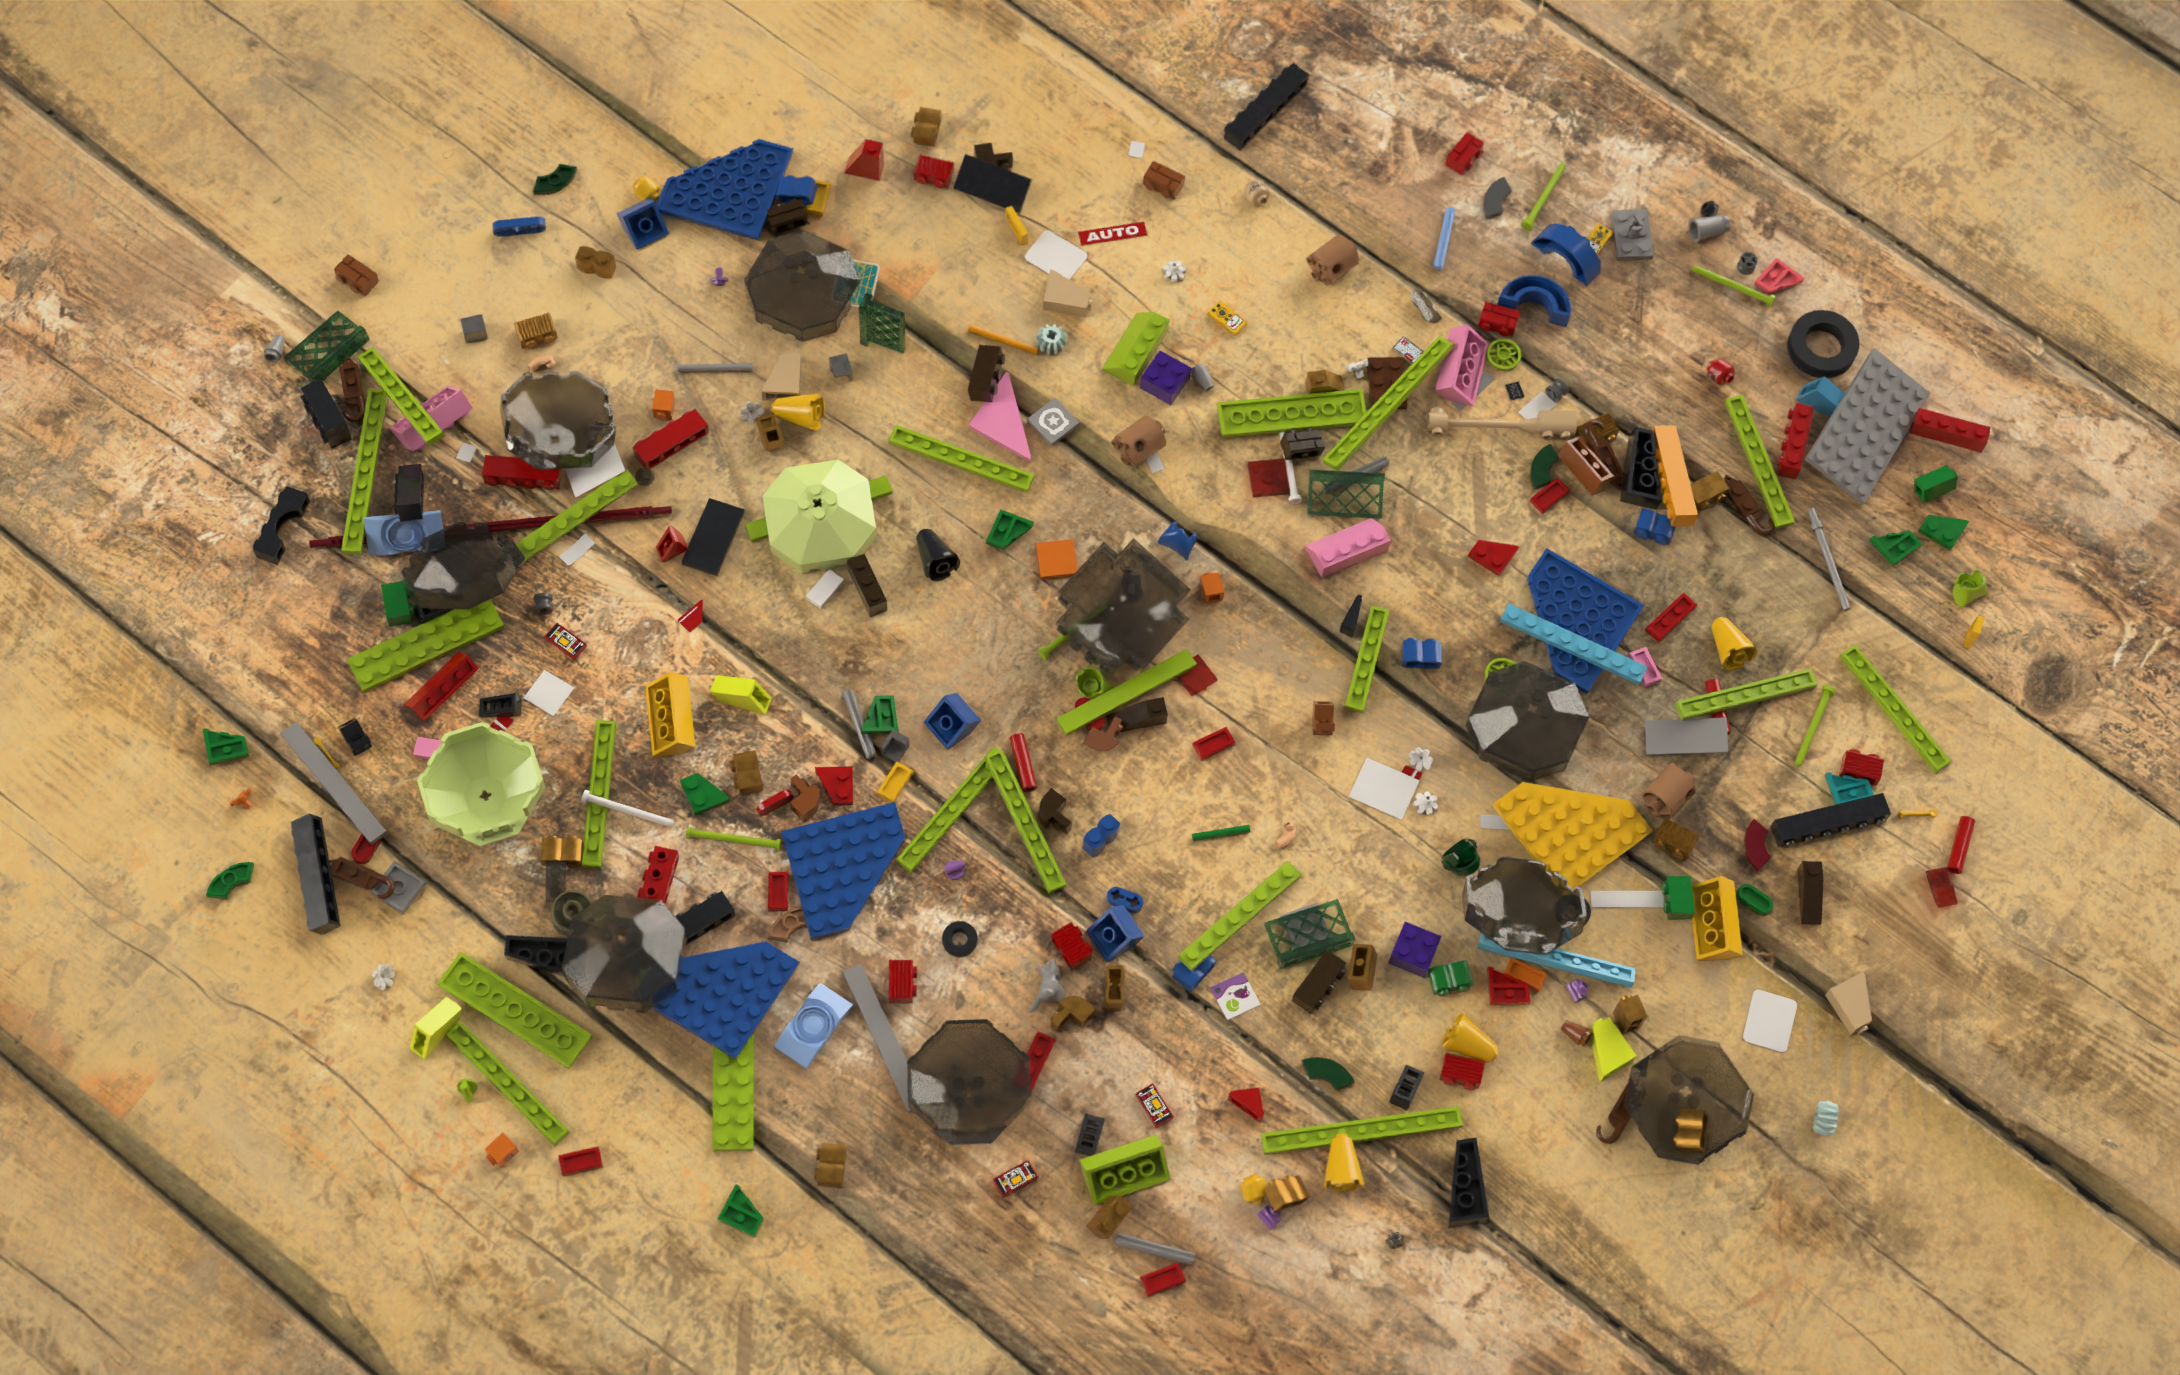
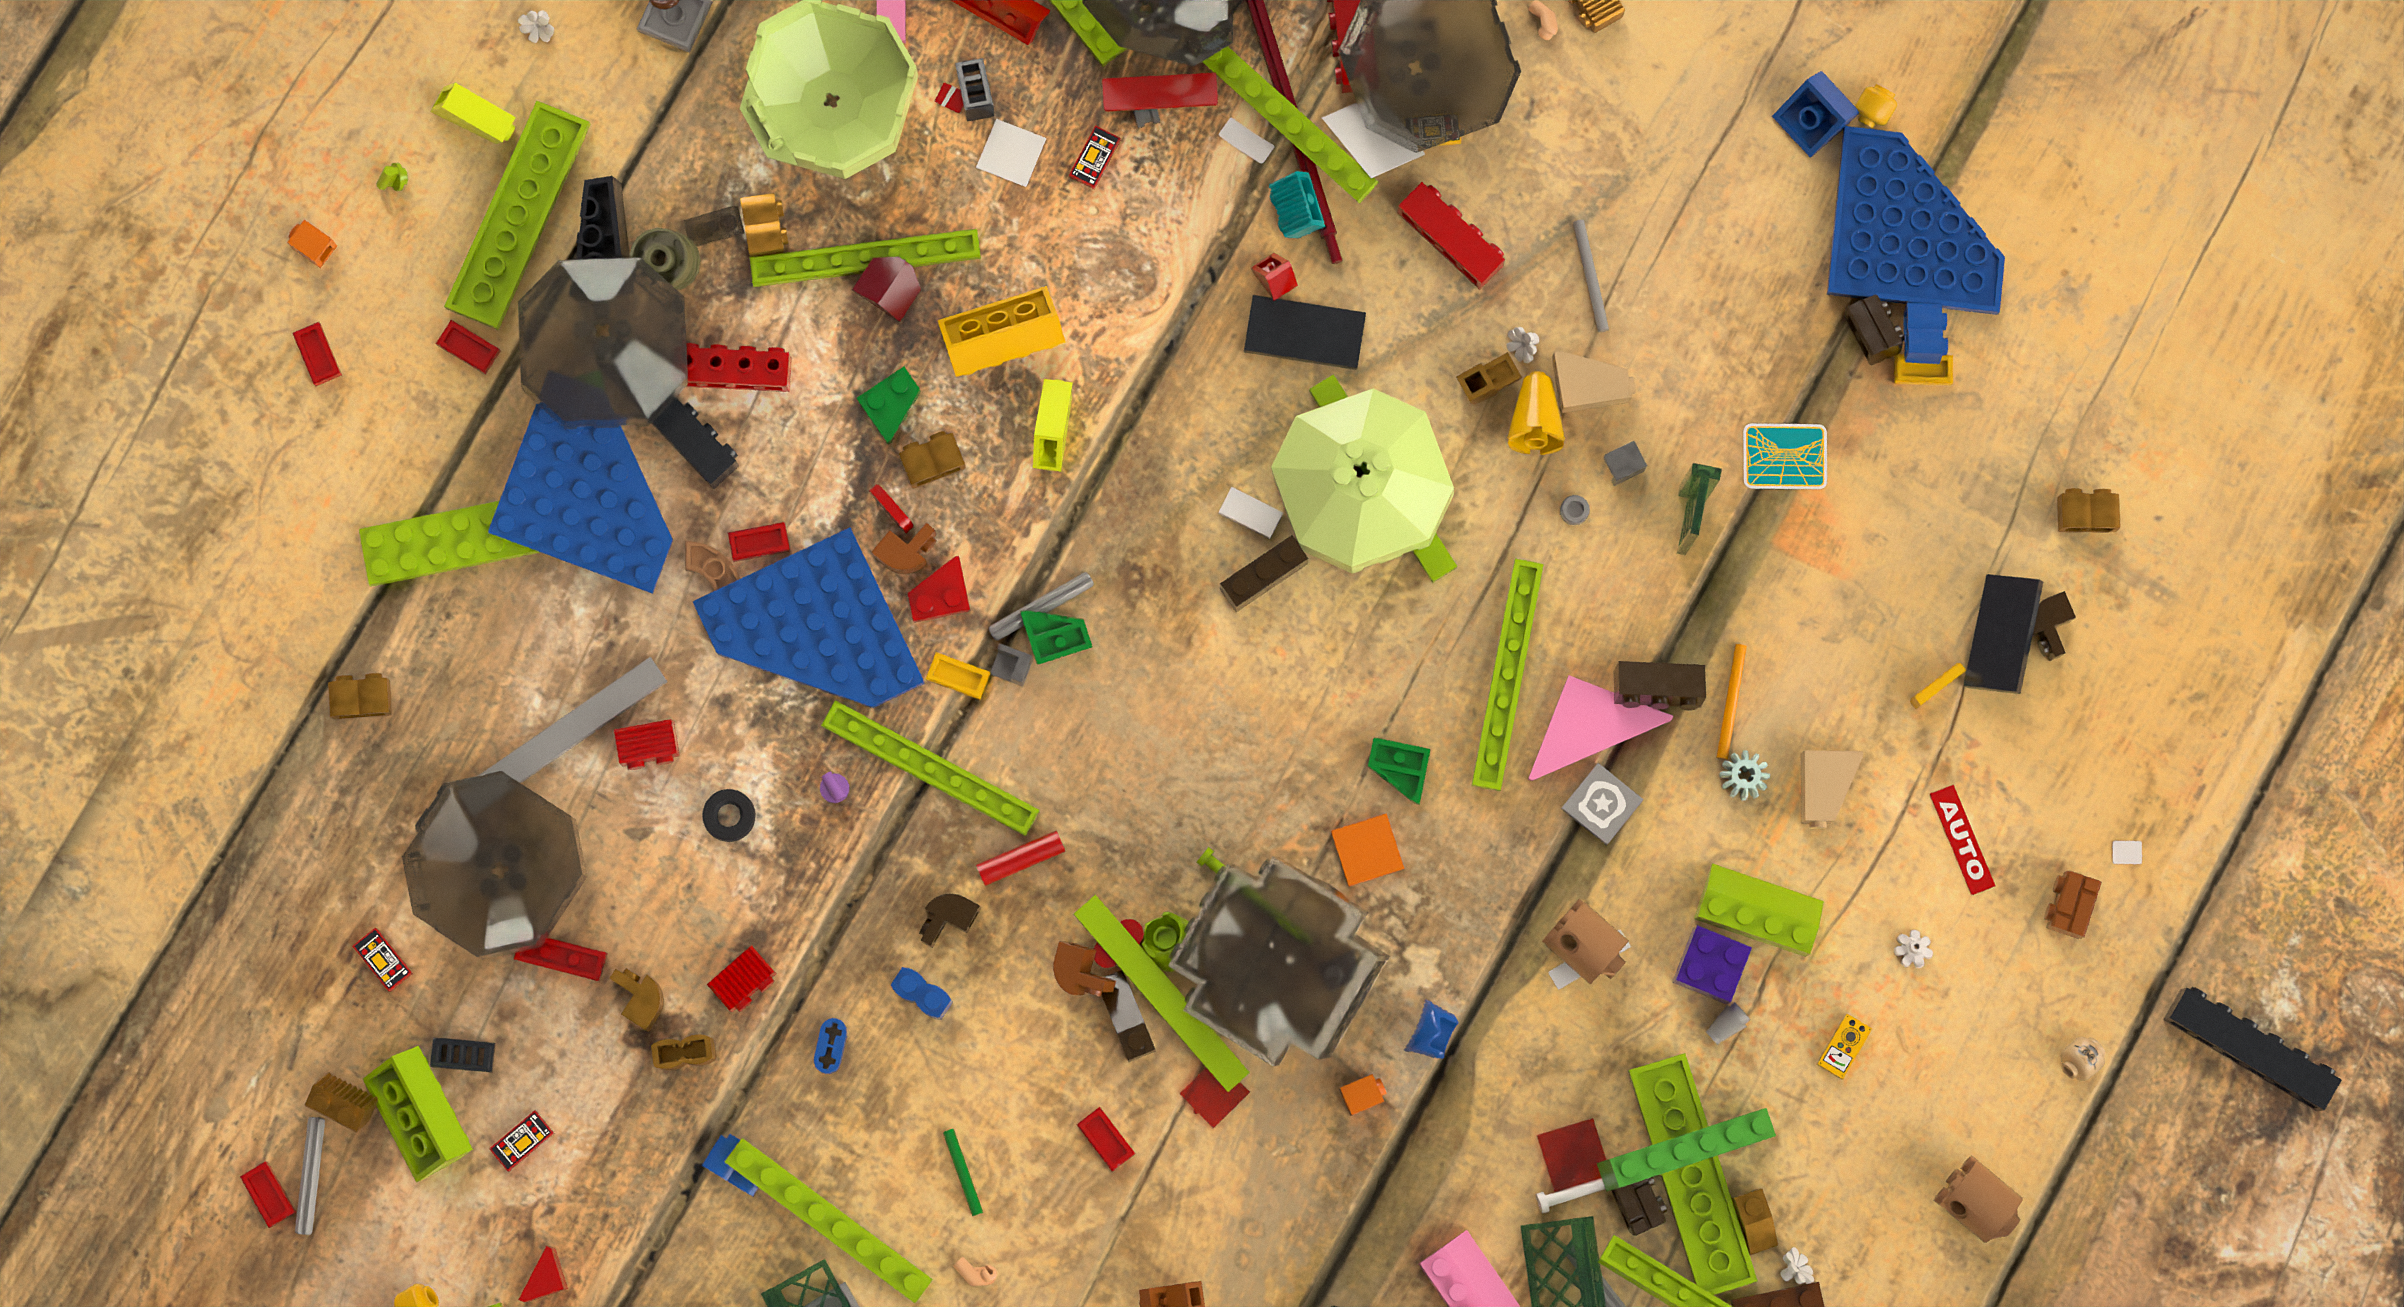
camera: 85 degrees right, 15 degrees up
(507, 1083) = (412, 229): lime tile -> none
(533, 590) = (1160, 92): none -> red panel
(587, 797) = (844, 300): white bar -> none
(597, 262) = (1729, 54): pearl gold brick -> none
(599, 1059) = (468, 347): none -> red tile
(622, 780) = (889, 285): none -> dark red slope
(629, 523) = (1296, 205): none -> teal brick
(644, 476) = (1381, 211): clear smoke plate -> none
(663, 404) = (1507, 212): orange brick -> none
(692, 617) = (1169, 330): red sticker -> none
(719, 280) = (1742, 249): medium lavender plate -> none
(733, 838) = (827, 462): lime bar -> none
(741, 1213) = (273, 587): green wing -> none
(806, 302) = (1743, 409): clear smoke windscreen -> none
(813, 1025) = (565, 632): light blue slope -> none
(864, 404) = (1574, 510): none -> light grey tile
(867, 160) = (1997, 430): red slope -> none
(933, 171) = (2007, 538): red brick -> none
(936, 555) = (1333, 664): black cone -> none
(952, 720) = (1068, 741): blue slope -> none
(1025, 821) = (927, 877): lime tile -> none
(1050, 987) = (673, 959): light grey animal -> none
(1055, 254) = (1901, 757): white sticker -> none
(1115, 932) = (773, 1040): blue slope -> none
(1235, 996) = (711, 1233): sticker -> none
(1283, 424) = (1686, 1149): none -> bright green arch

